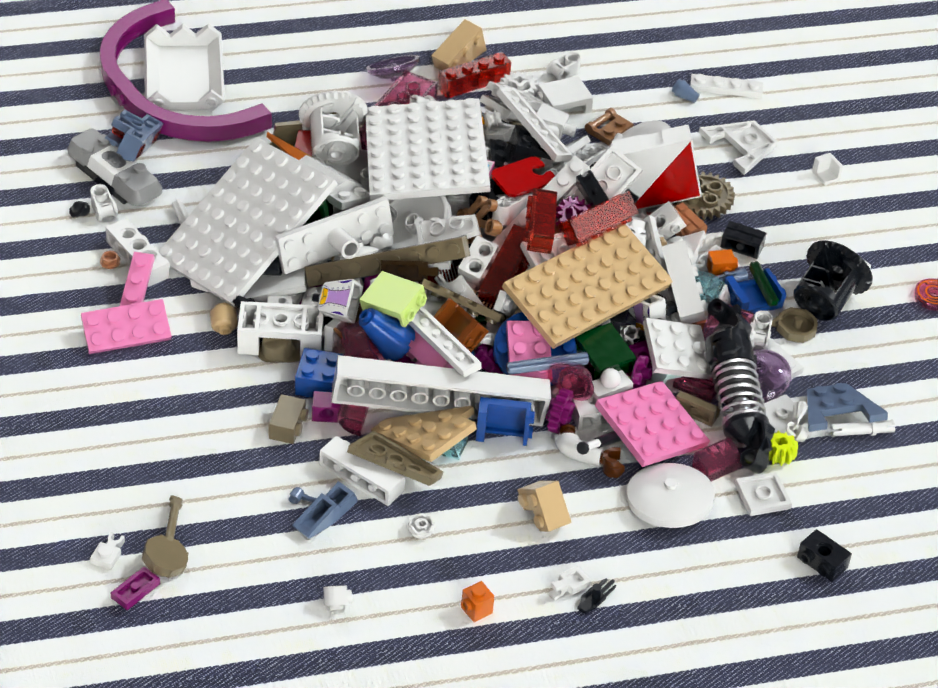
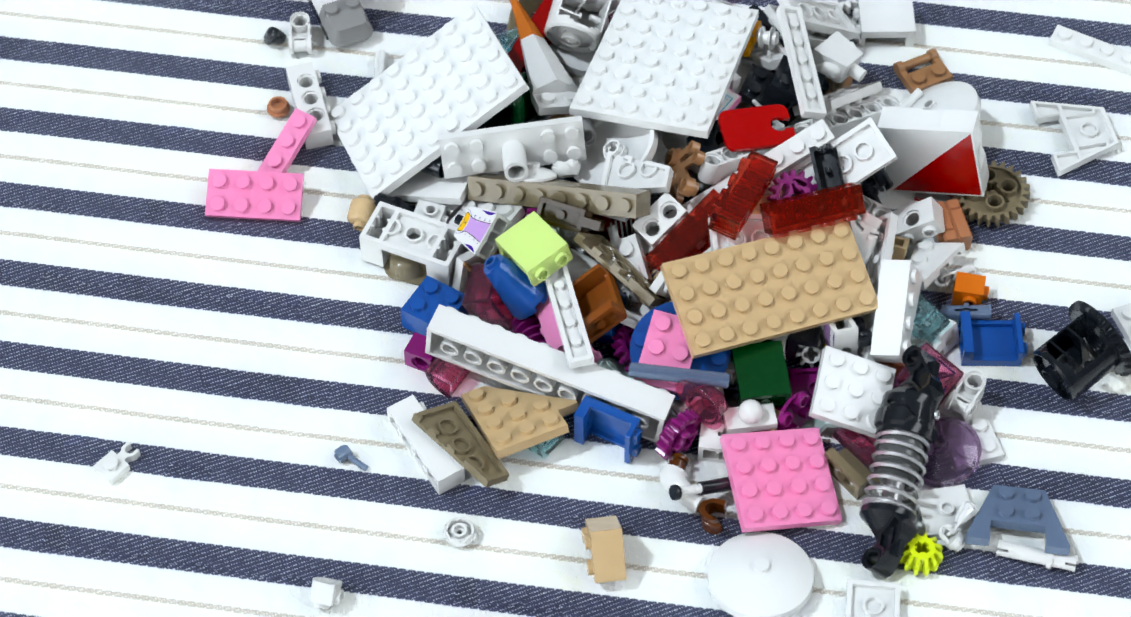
camera: 25 degrees right, 10 degrees up
(135, 588) = (122, 516): magenta plate -> none
(164, 553) = (168, 485): dark tan piece -> none
(288, 419) = (375, 357): dark tan brick -> none
(325, 510) = (363, 482): sand blue slope -> none
(685, 91) = (1037, 46): sand blue cone -> none
(717, 459) = (837, 547): clear pink brick -> none
(743, 239) = (1012, 264): black brick -> none
(763, 284) = (1006, 331): dark green axle -> none
(795, 324) = (1019, 394): dark tan piece -> none

